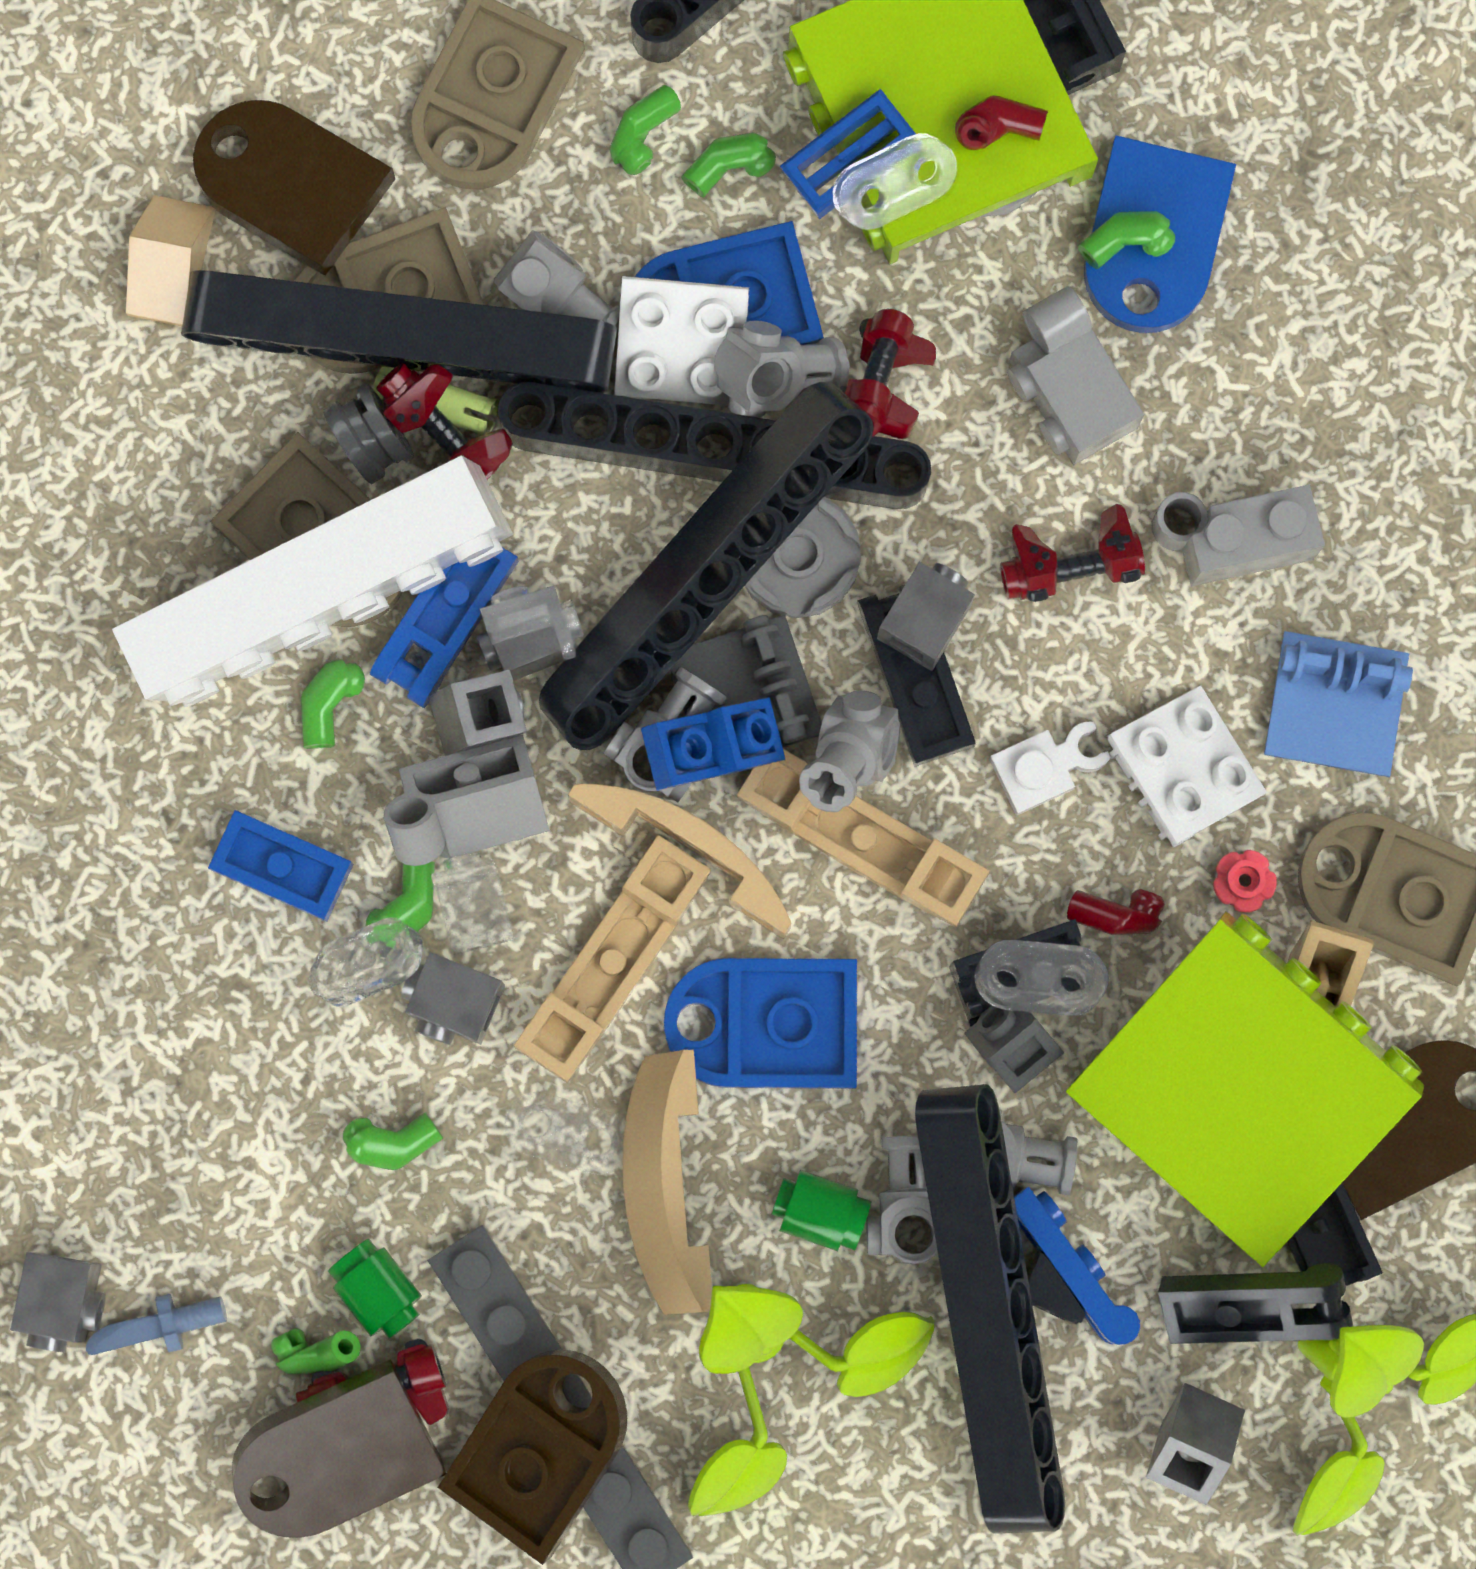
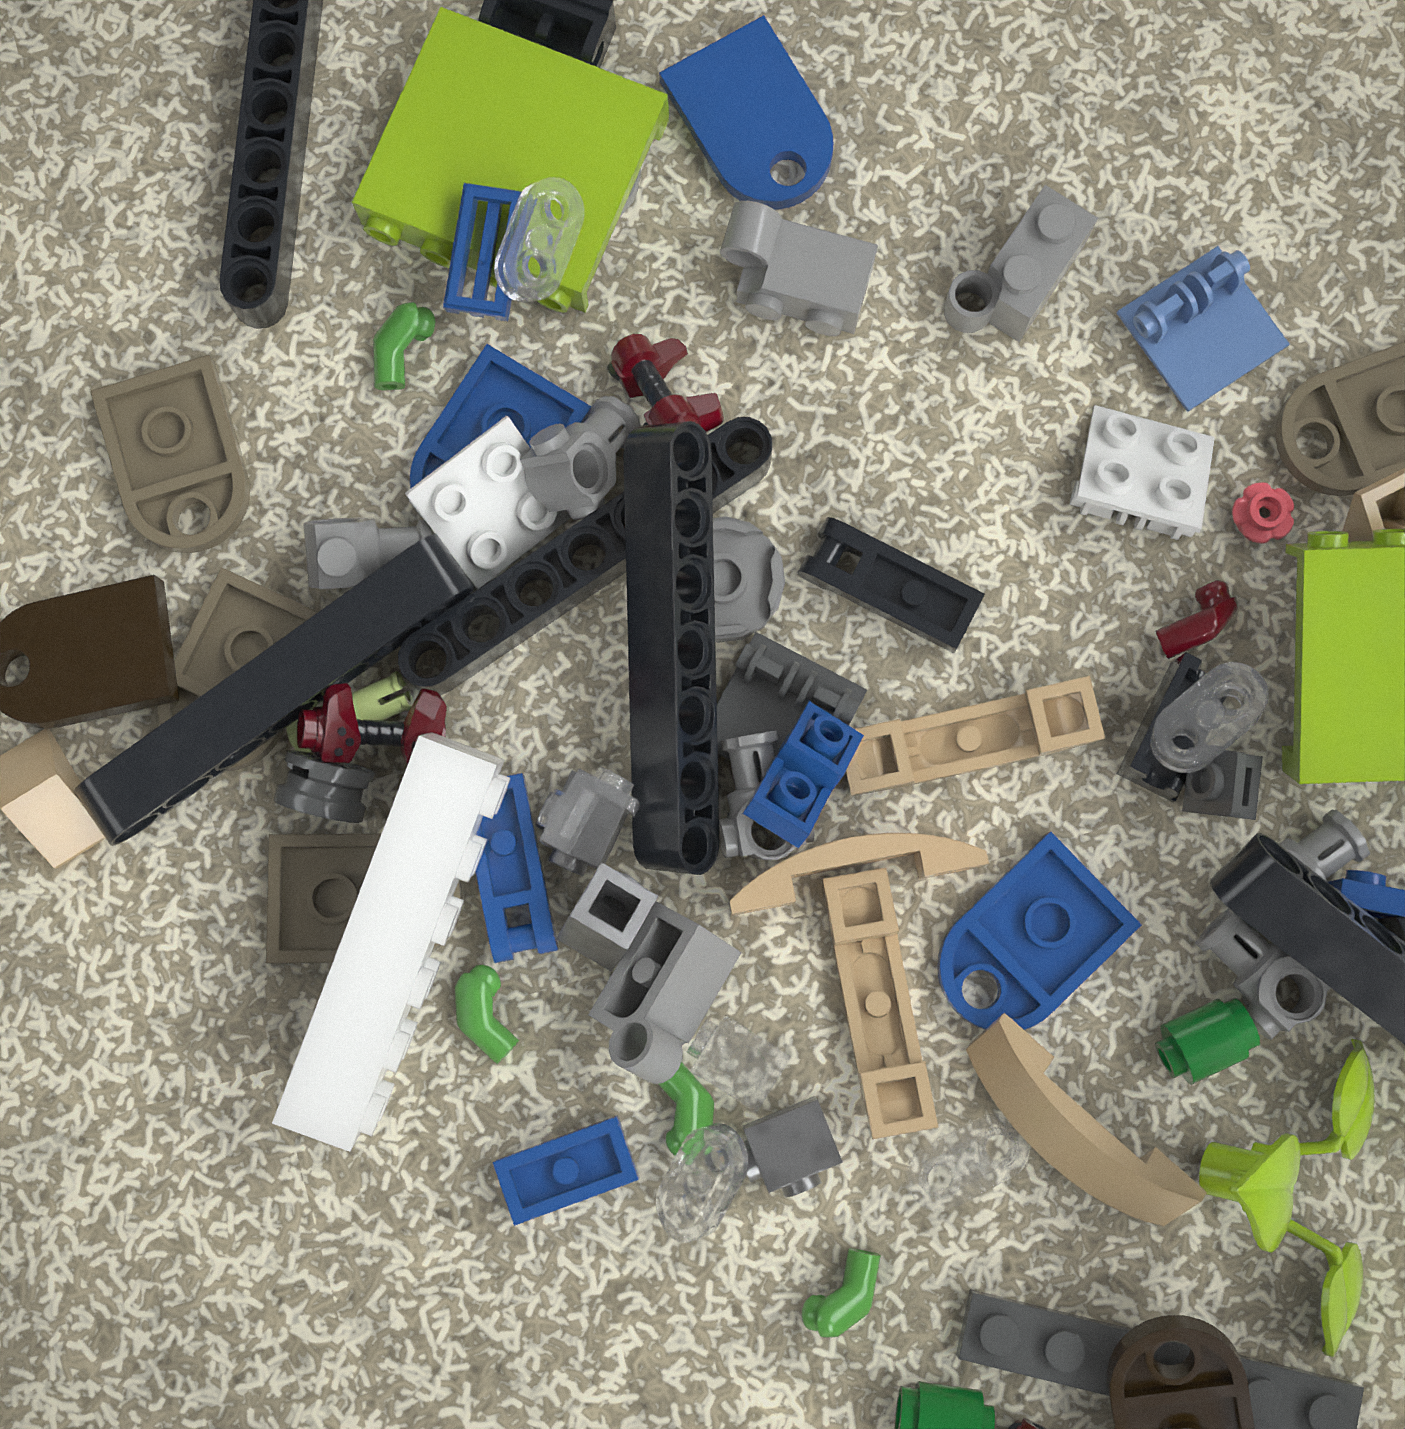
camera: 40 degrees left, 0 degrees up
(636, 124) = (306, 380): bright green arm -> none
(852, 751) = (906, 684): light grey connector -> none
(927, 613) = (867, 531): flat silver brick -> none
(995, 118) = (568, 127): dark red arm -> none
(1037, 570) = (905, 428): dark red piece -> none
(1040, 770) = (1044, 570): white plate -> none
(1124, 229) = (735, 126): bright green arm -> none

